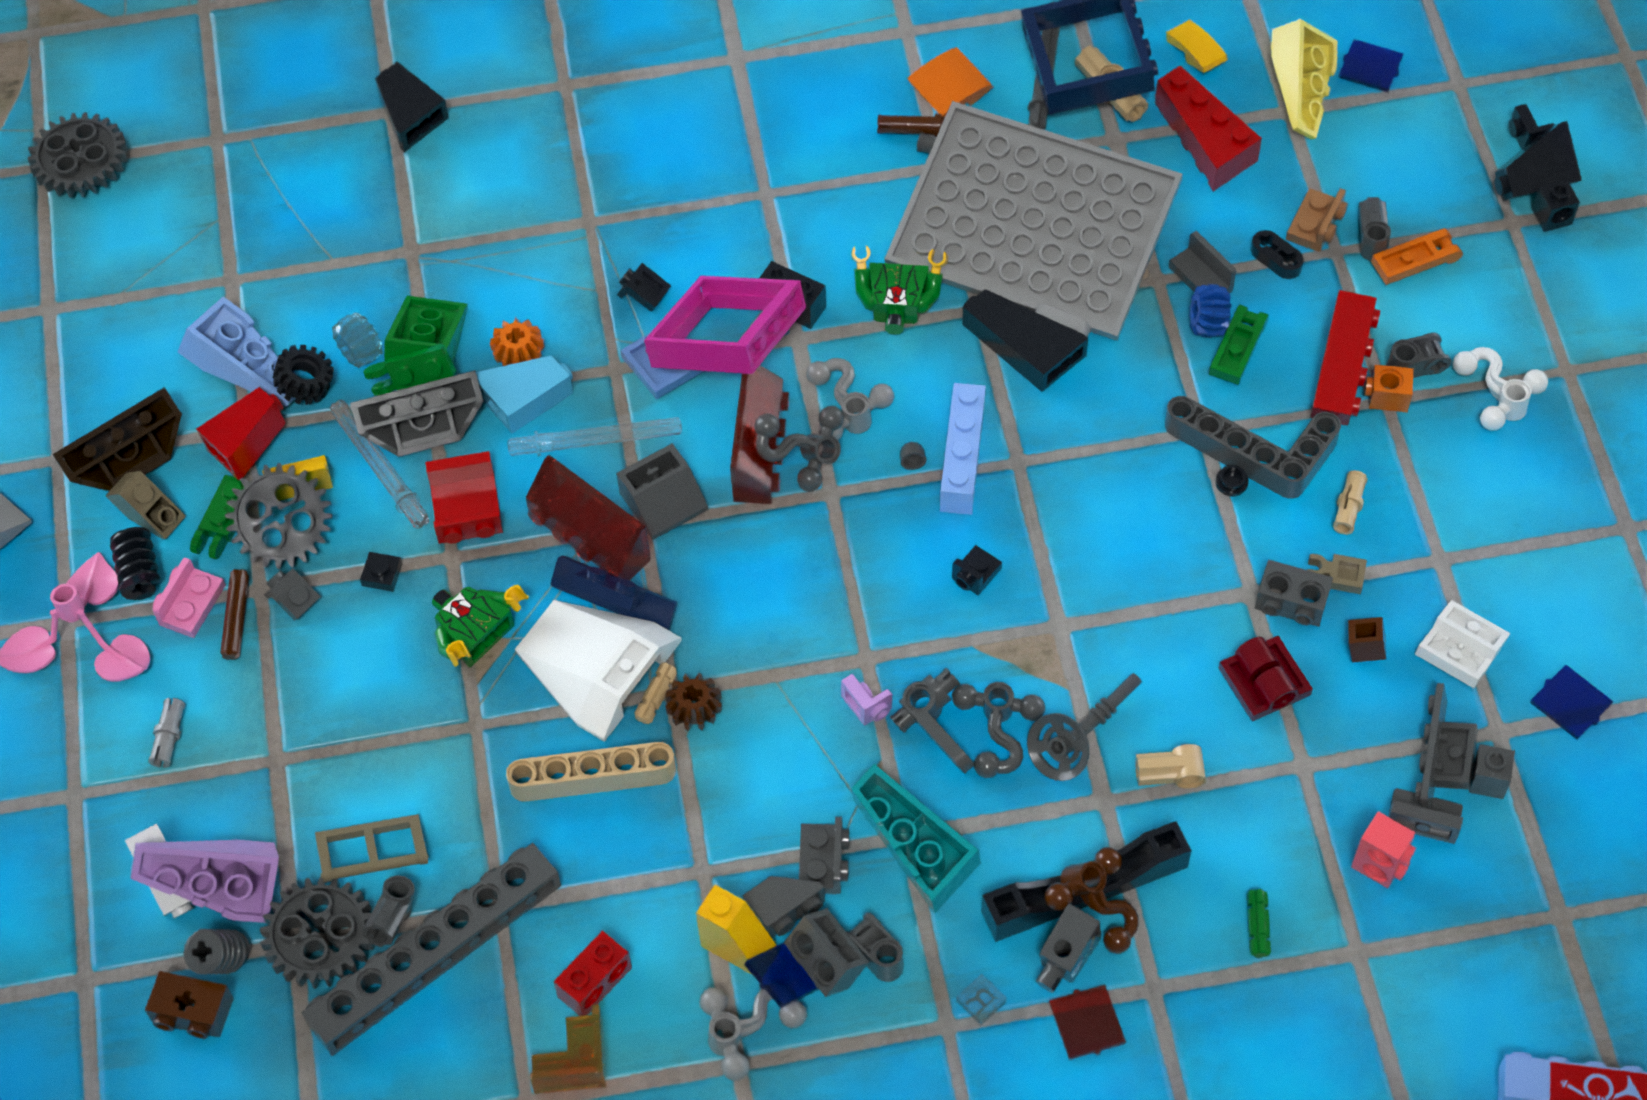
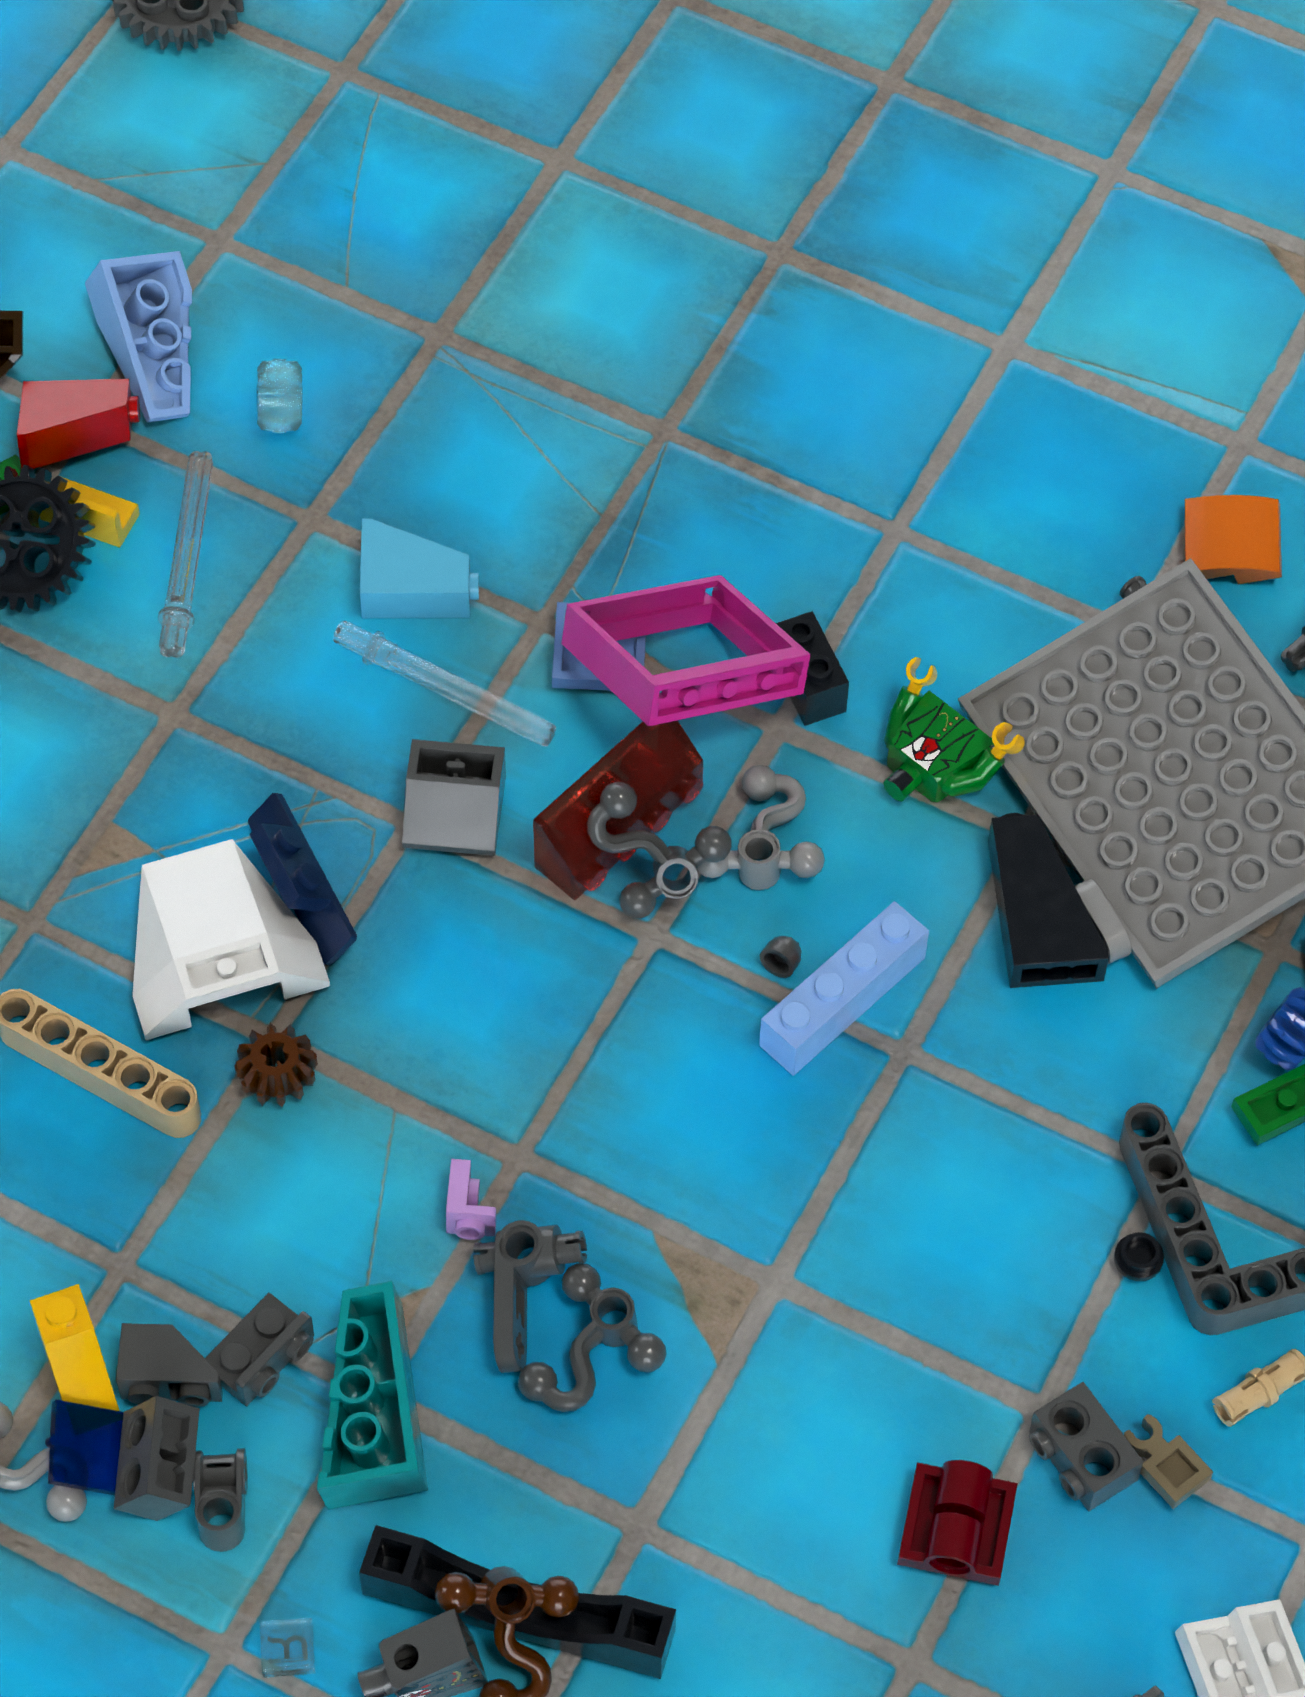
camera: 35 degrees right, 0 degrees up
(306, 361) = (201, 378): black tyre -> none
(381, 571) = (83, 677): black plate -> none
(409, 105) = (575, 164): black slope -> none
(411, 369) = (304, 468): green hinge -> none
(420, 414) = (269, 525): dark grey wedge -> none
(425, 324) = (357, 442): green slope -> none
(464, 497) = (241, 656): red panel -> none
(473, 621) = (119, 802): green torso -> none
(516, 342) = (451, 516): orange gear -> none
(587, 521) = (338, 777): clear red slope -> none
(643, 286) = (651, 546): black bracket -> none
(655, 693) = (239, 1027): tan axle -> none
(910, 124) = (1130, 552): reddish brown pin -> none
(975, 570) = (733, 1144): black bracket -> none
(1072, 740) = (649, 1424): dark grey dish -> none
(1180, 766) = (756, 1552): tan piece -> none
(1367, 639) = (1122, 1569): reddish brown plate -> none

